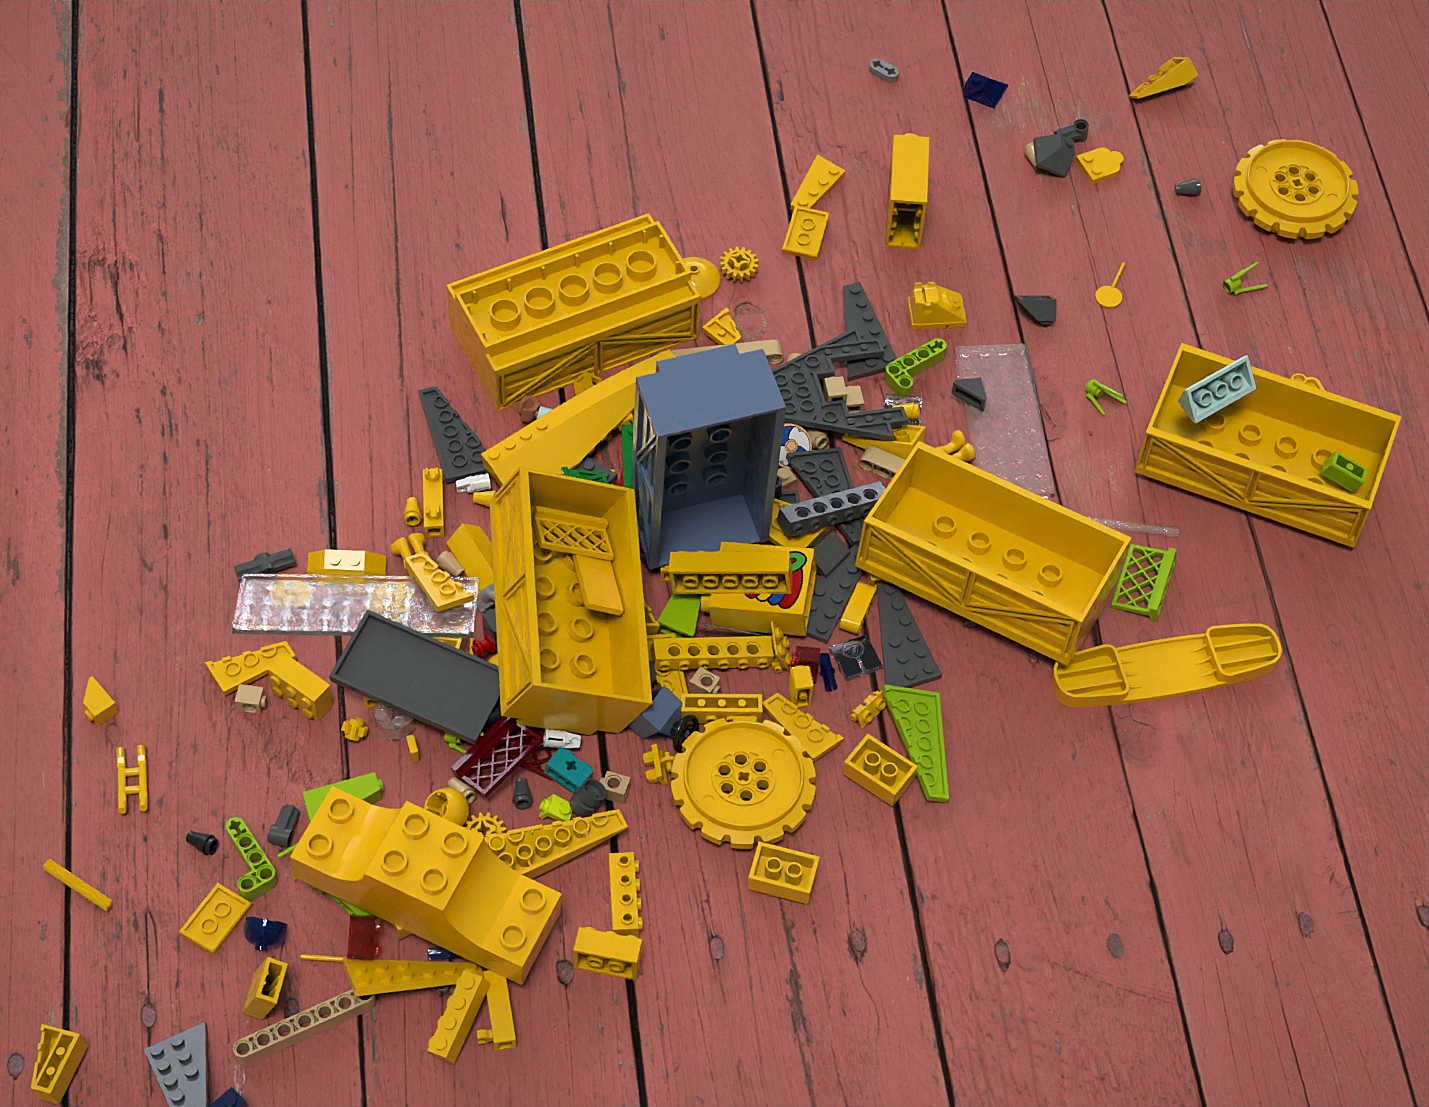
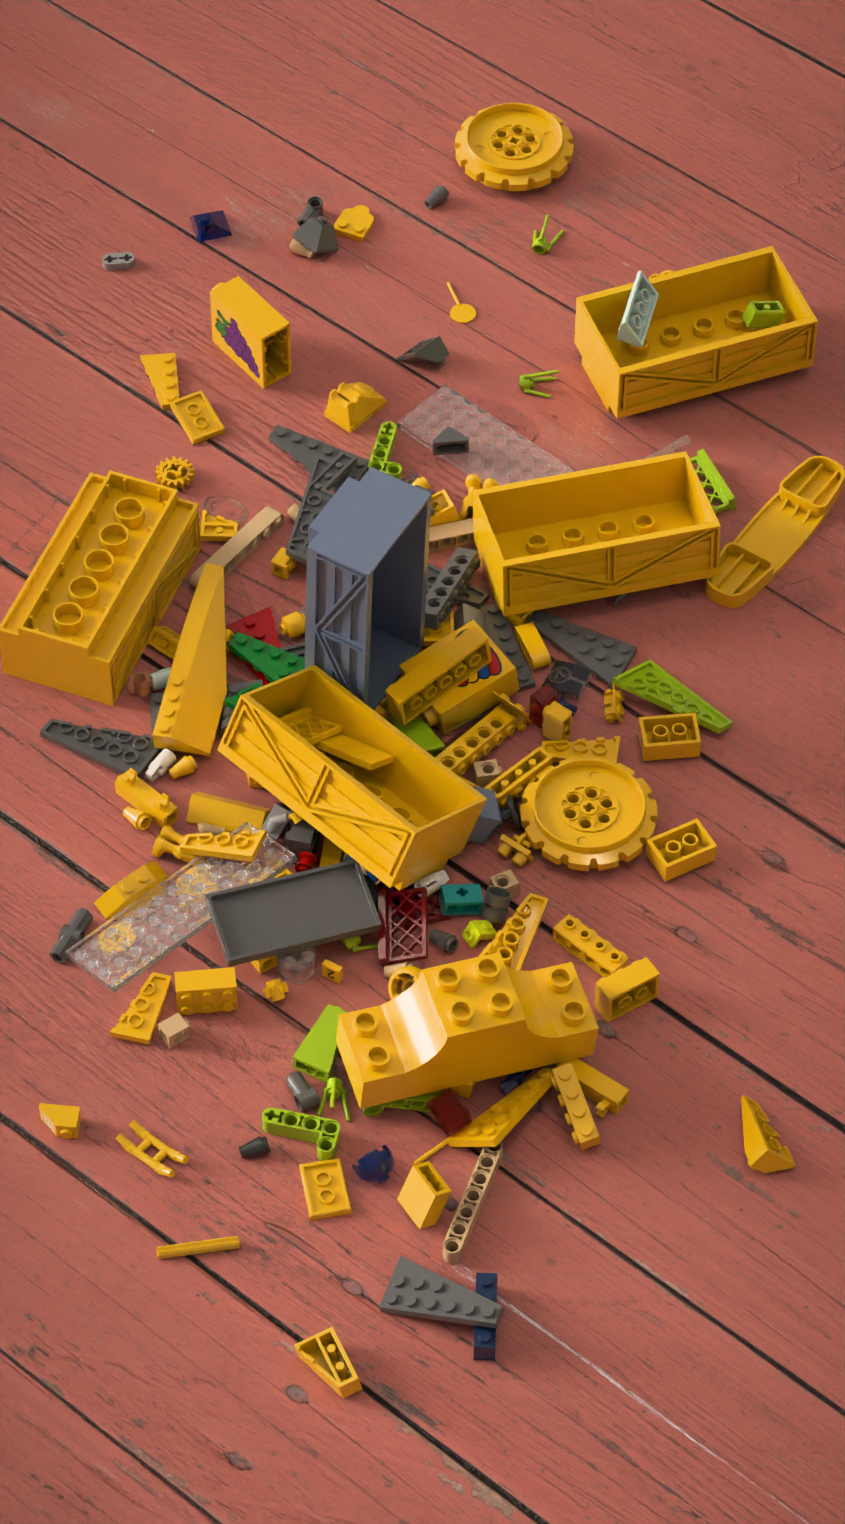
camera: 40 degrees left, 5 degrees down
(1172, 74) = (335, 125): yellow wedge -> none

